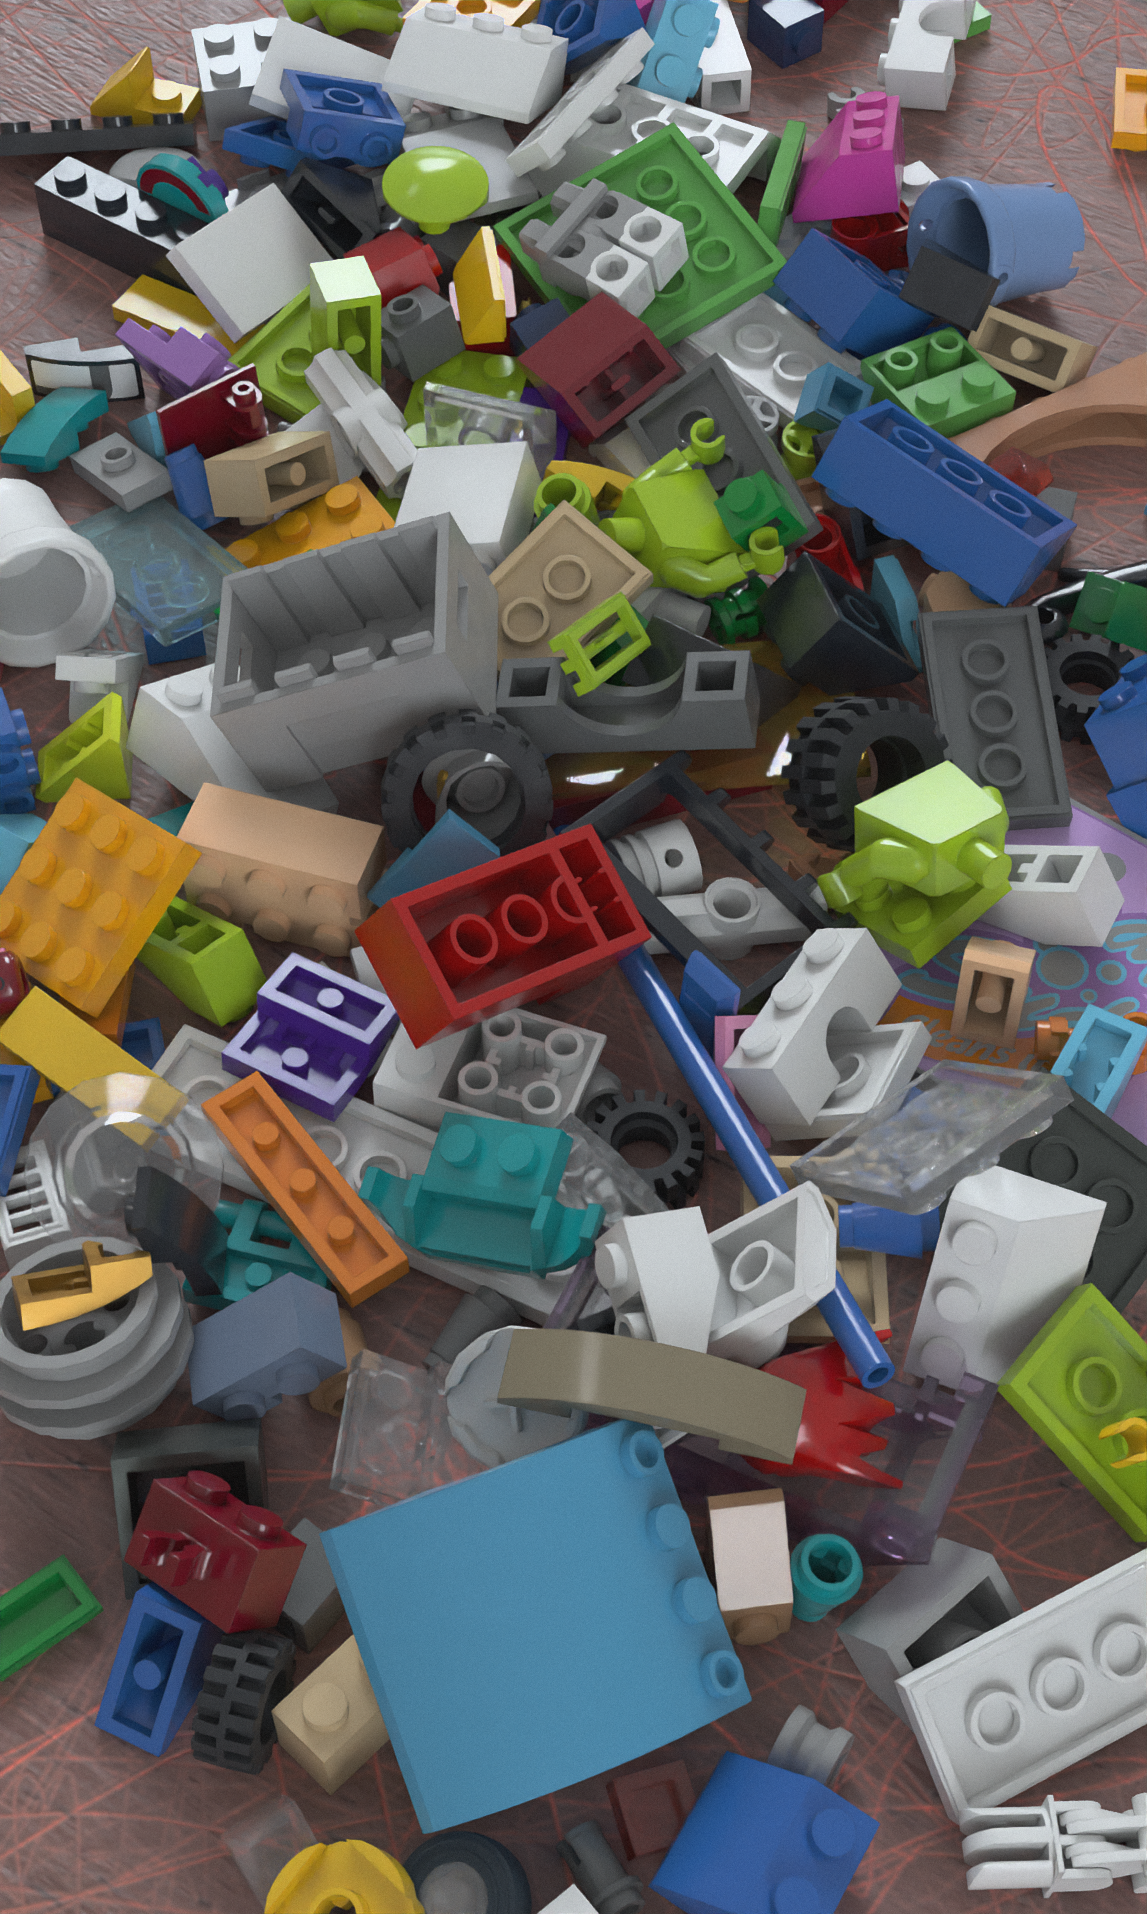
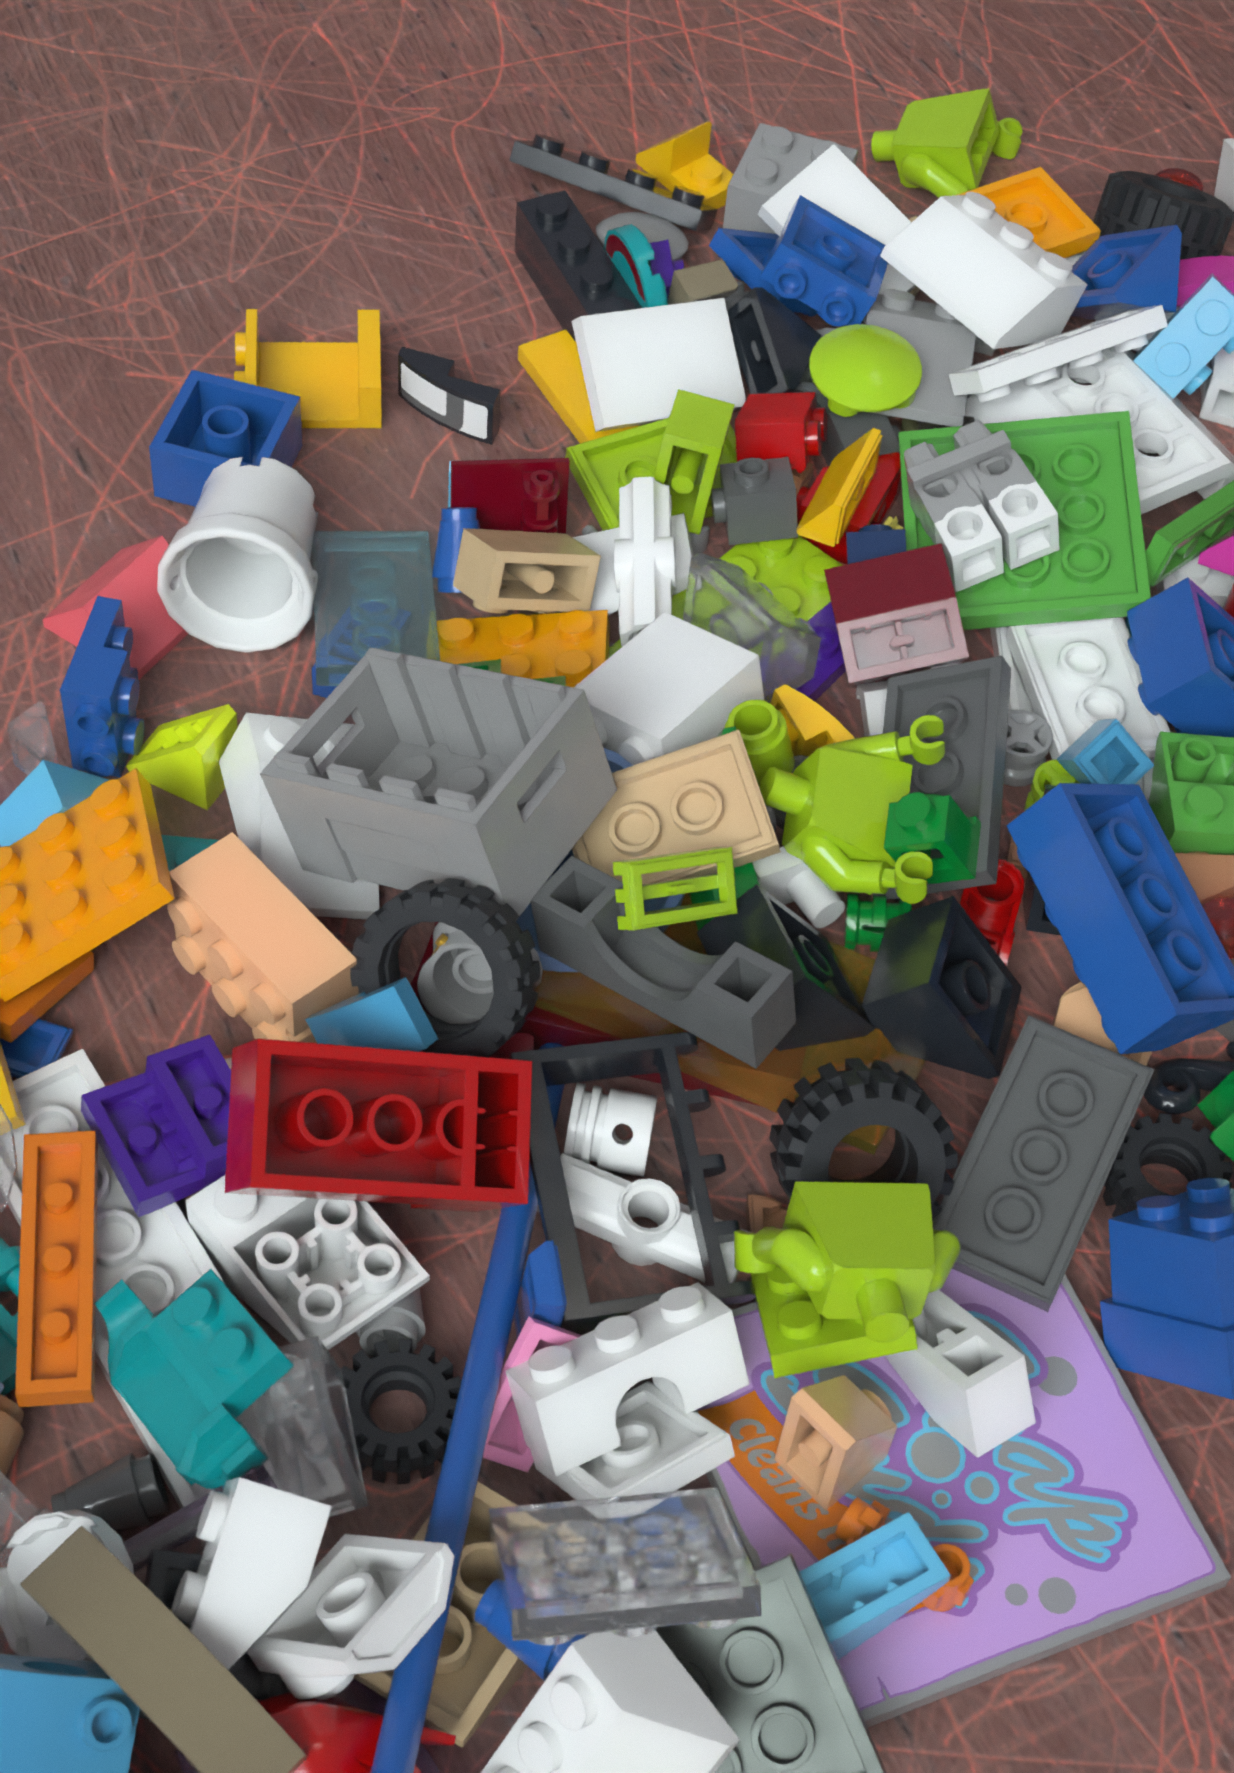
camera: 25 degrees right, 0 degrees up
(51, 428) = (376, 434): teal slope -> none
(97, 674) = (252, 681): white slope -> none
(122, 472) = (411, 503): light grey plate -> none
(176, 362) = (520, 427): medium lavender plate -> none
(204, 962) = (138, 993): lime slope -> none
(247, 178) = (701, 283): none -> dark tan slope
(896, 595) = (1036, 986): medium azure tile -> none

